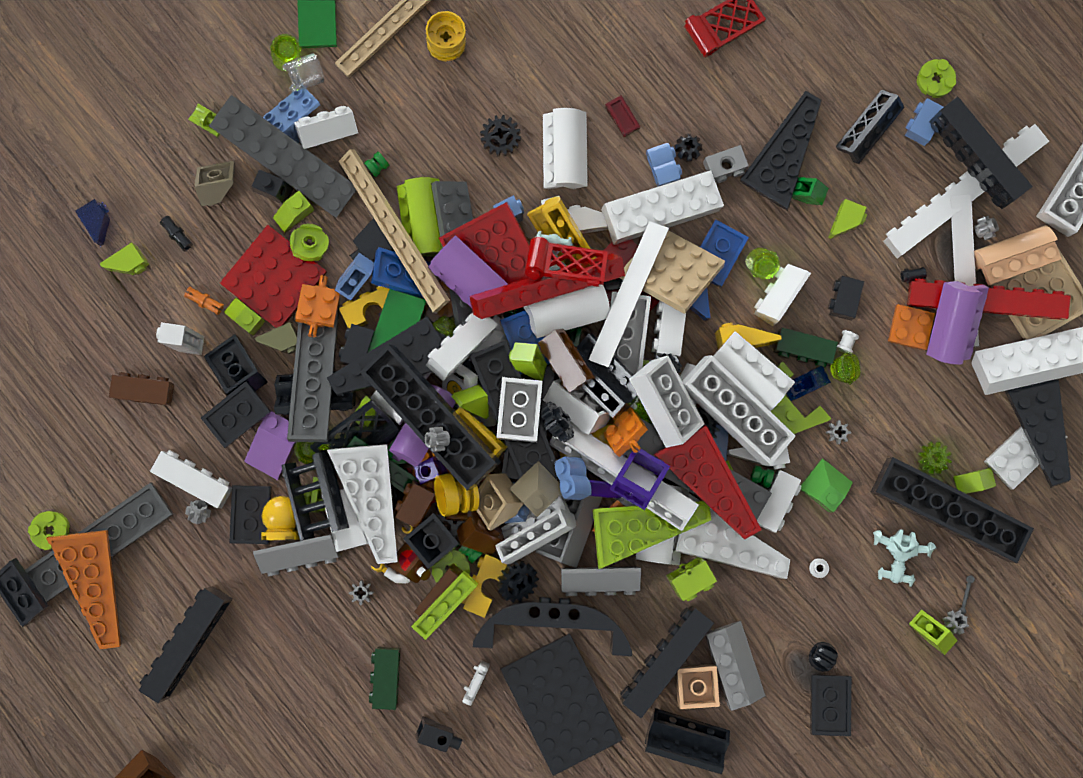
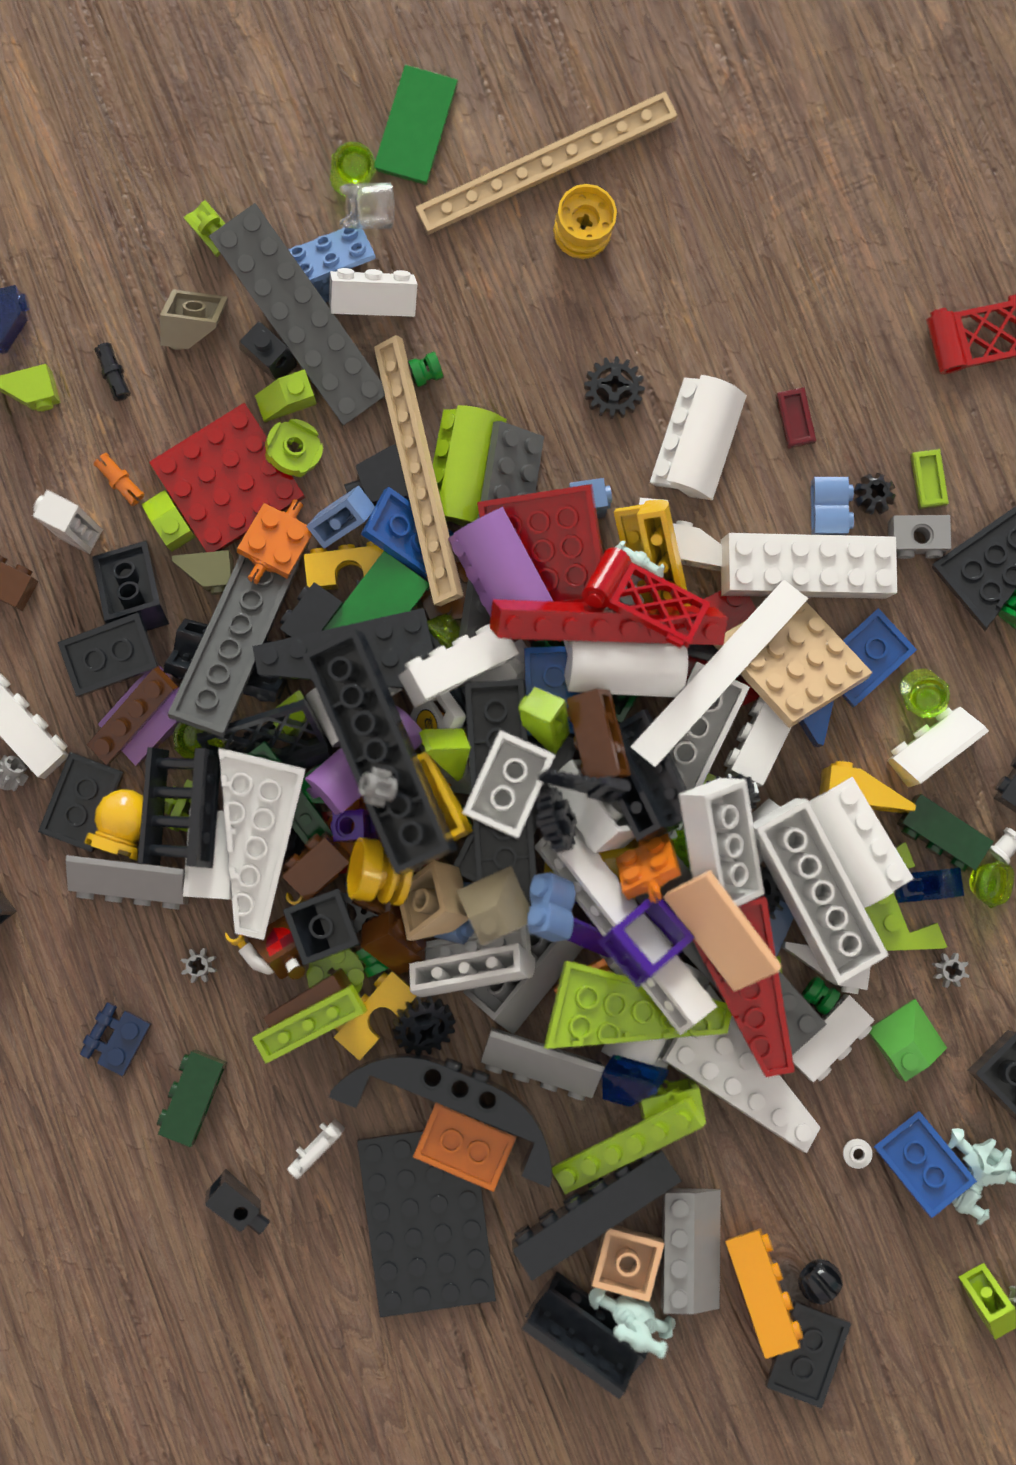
camera: 15 degrees right, 0 degrees up
(264, 448) = (132, 715): none -> reddish brown plate
(330, 658) = (123, 1043): none -> dark blue plate
(569, 649) = (464, 1146): none -> orange tile
(581, 391) = (603, 789): none -> black piece
(660, 571) = (630, 1080): none -> clear blue slope
(673, 612) = (628, 1145): none -> lime plate
(685, 456) = (722, 931): none -> light nougat tile
(715, 722) = (635, 1322): none -> light aqua piece
(720, 126) = (929, 479): none -> lime tile
(789, 676) = (763, 1293): none -> light orange brick
(863, 560) = (925, 1164): none -> blue plate

